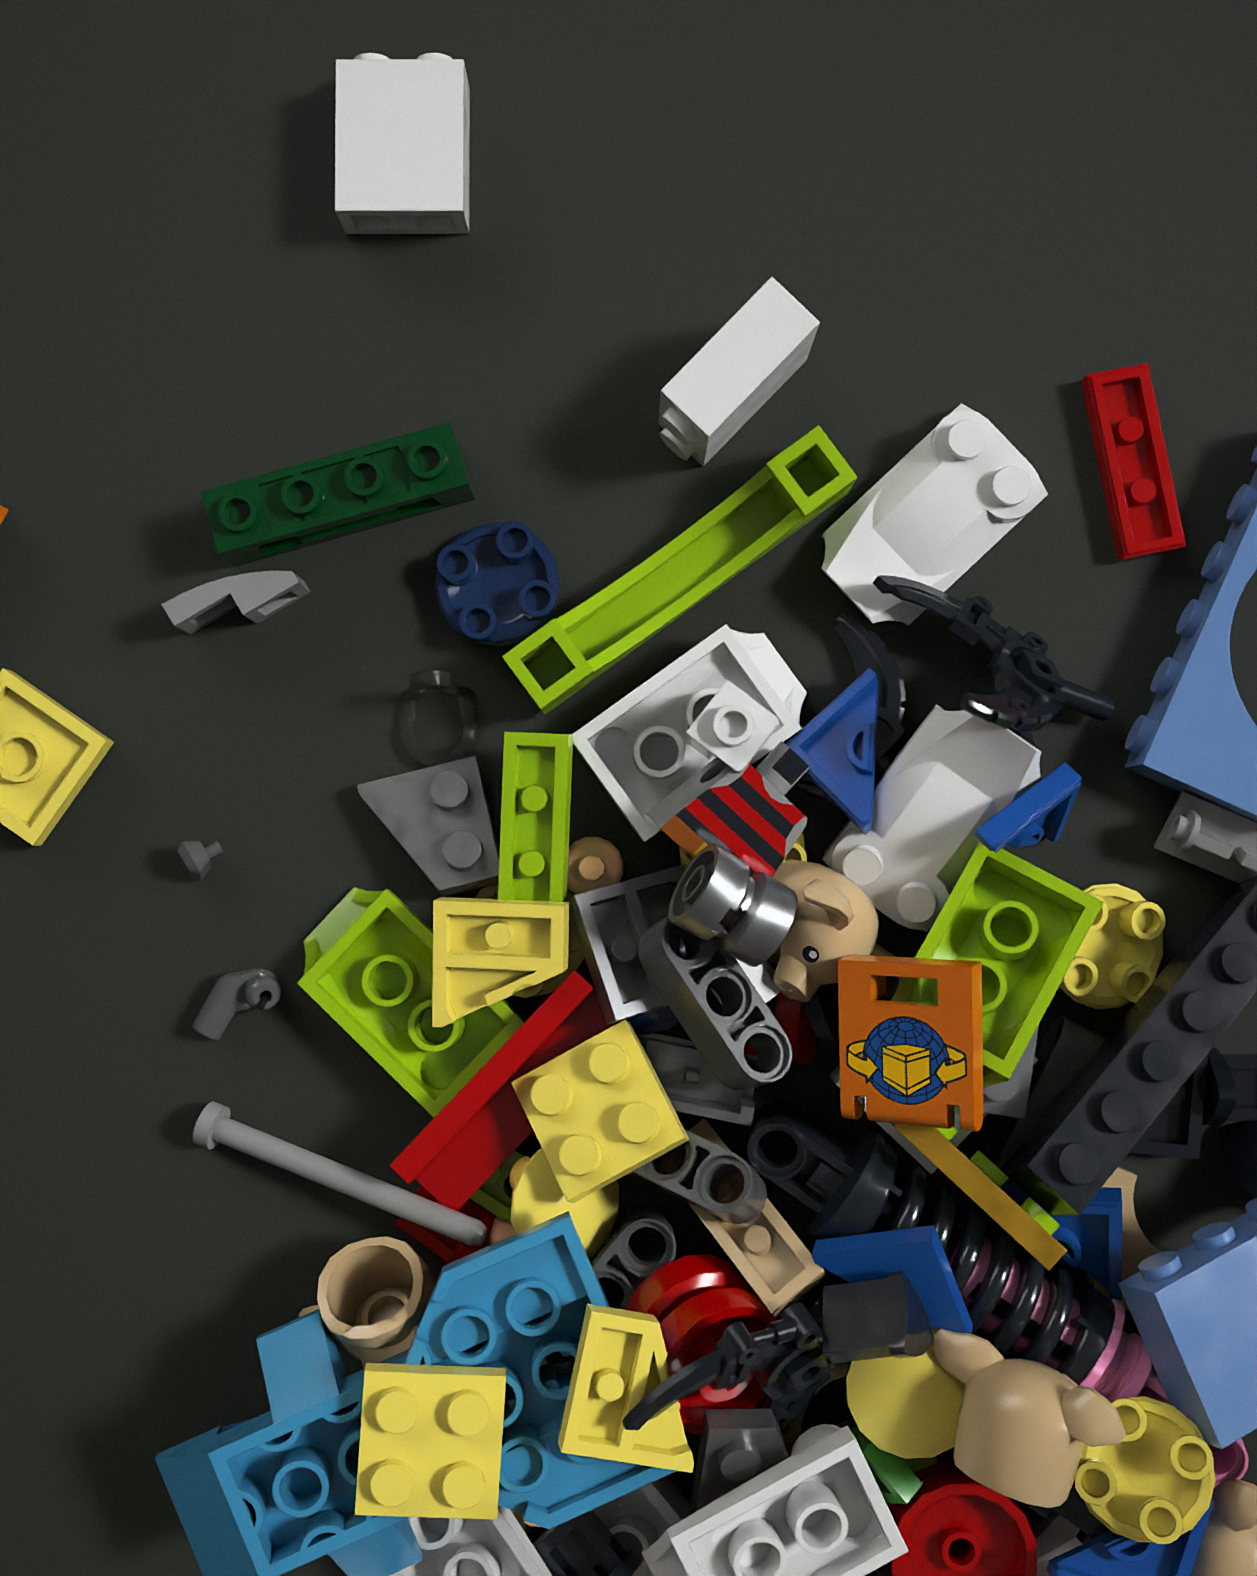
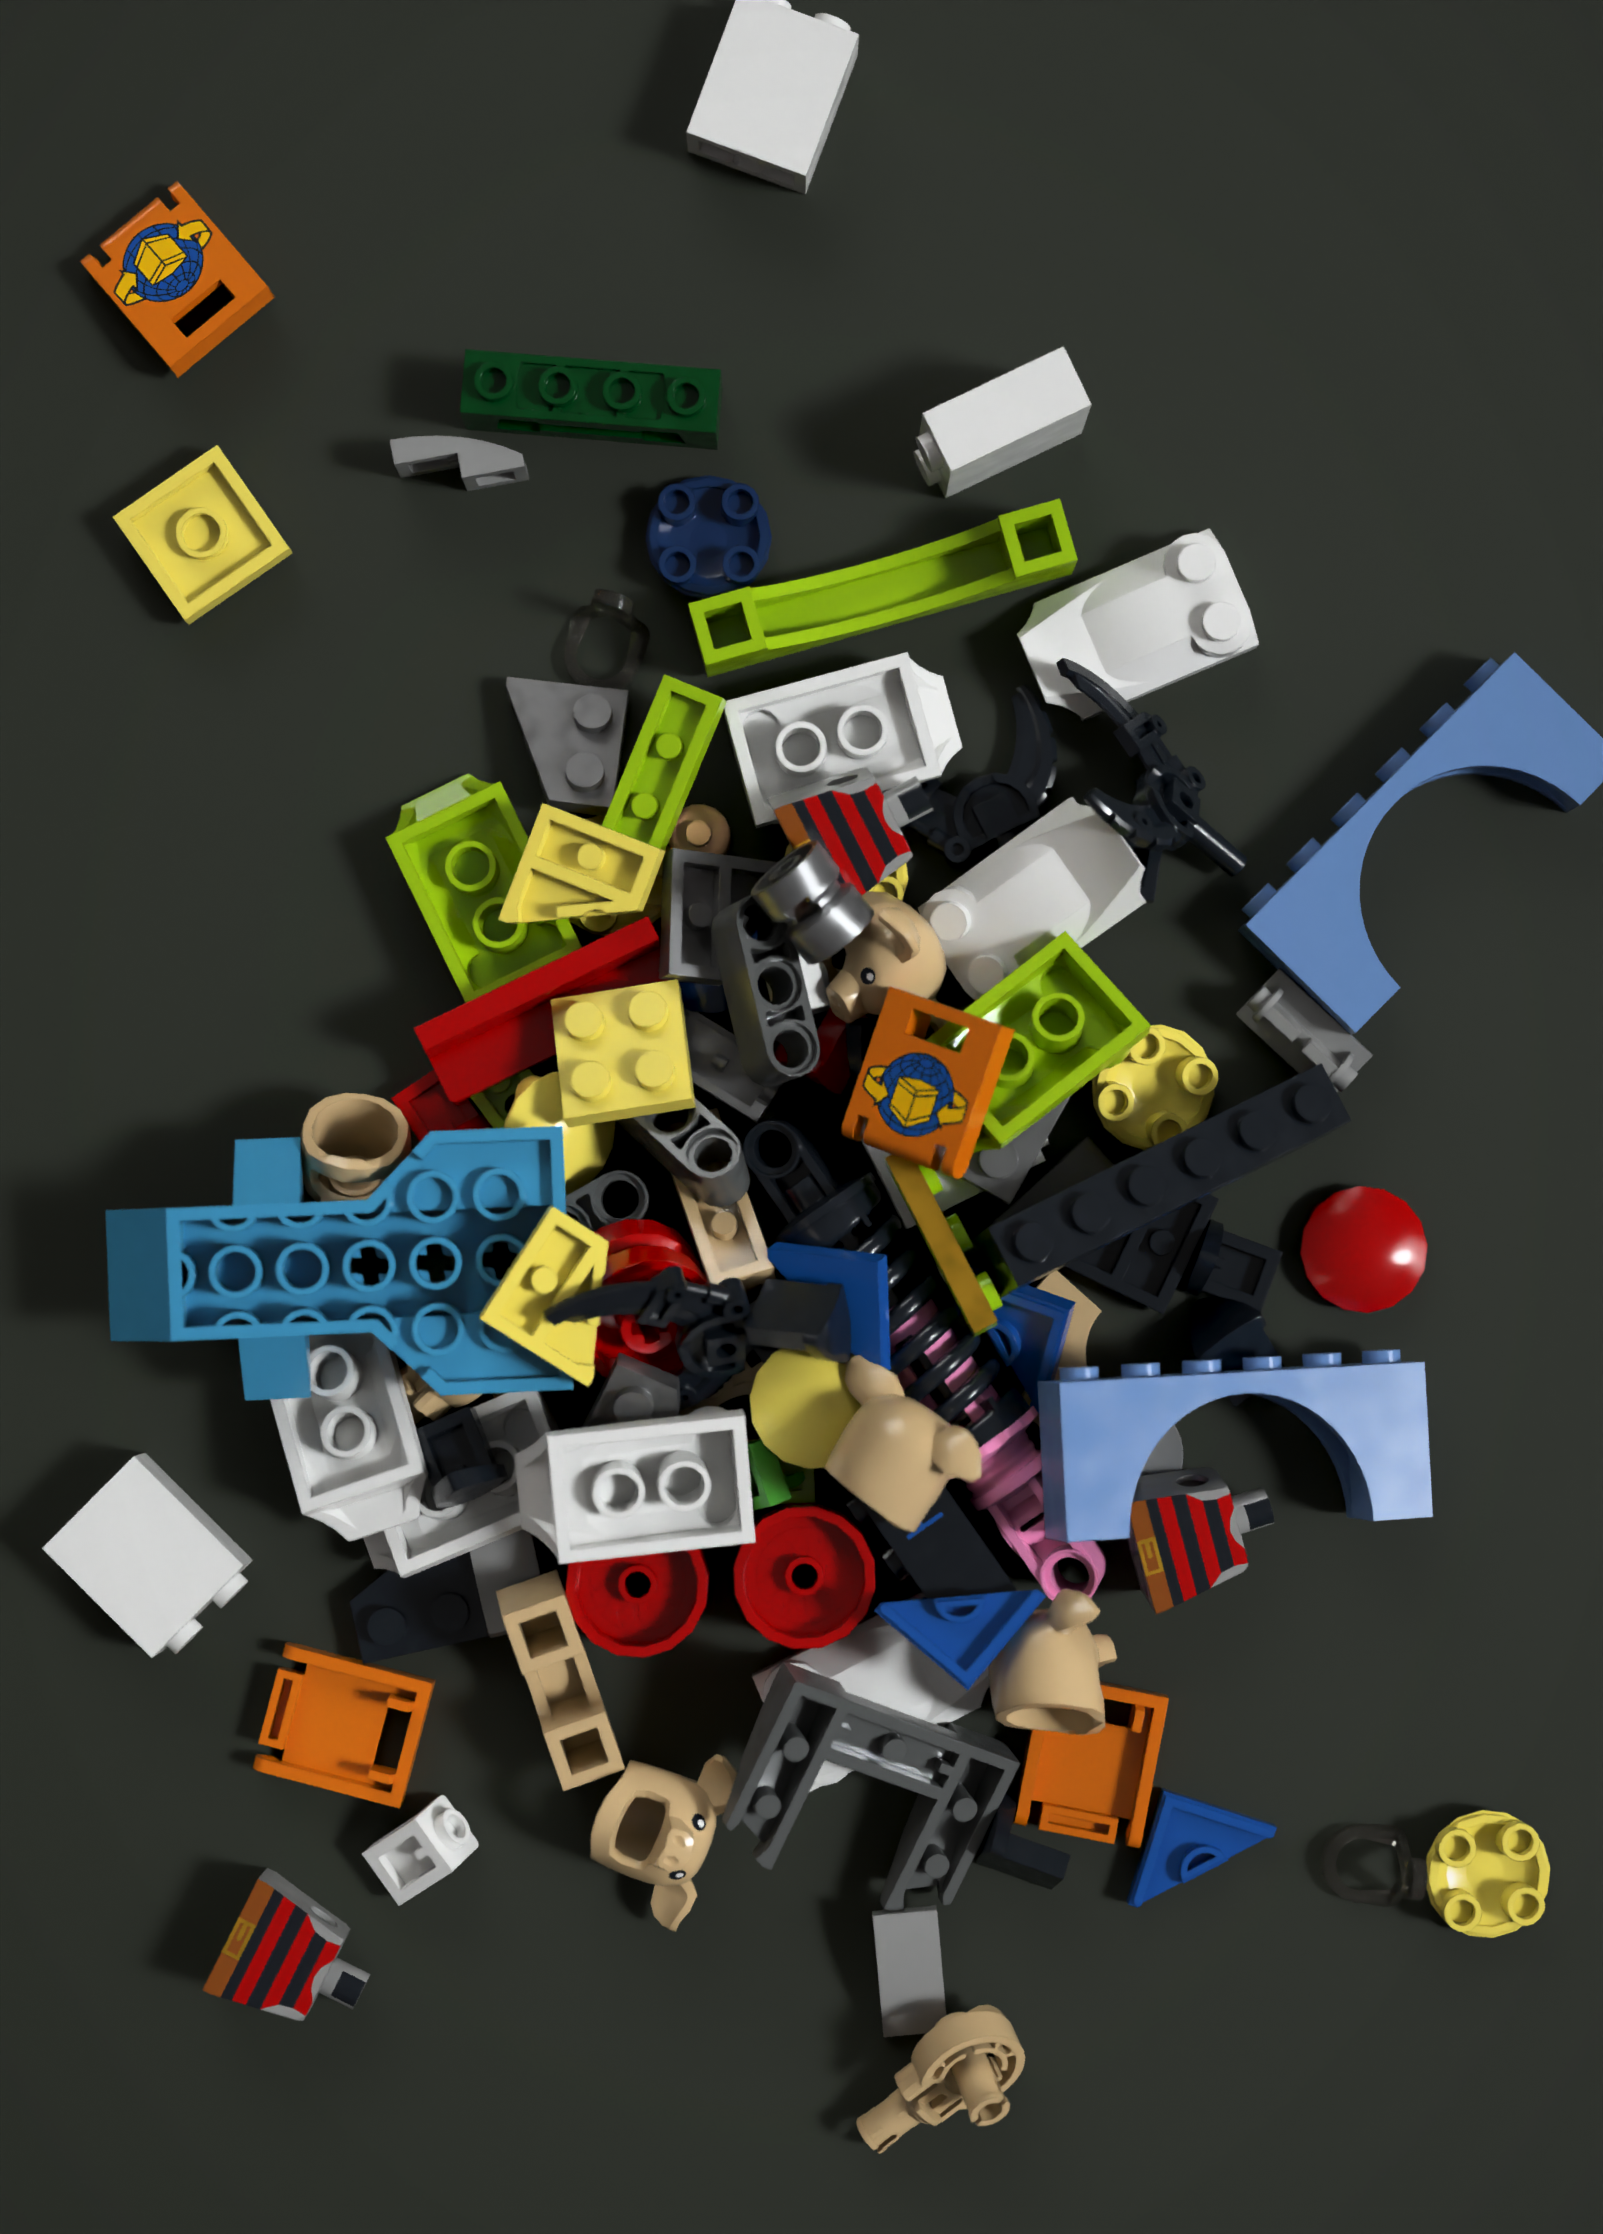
camera: 15 degrees right, 0 degrees up
(196, 857) = (330, 690): dark grey rock -> none
(216, 1127) = (258, 947): light grey bar -> none
(235, 993) = (320, 830): dark grey arm -> none
(430, 1441) = (366, 1271): light yellow plate -> none
(732, 727) = (872, 743): white bracket -> none
(842, 749) = (972, 808): blue tile -> none
(1034, 813) = (1124, 929): blue tile -> none
(1133, 462) = (1353, 644): red tile -> none
(1154, 1479) = (993, 1544): light yellow dish -> none

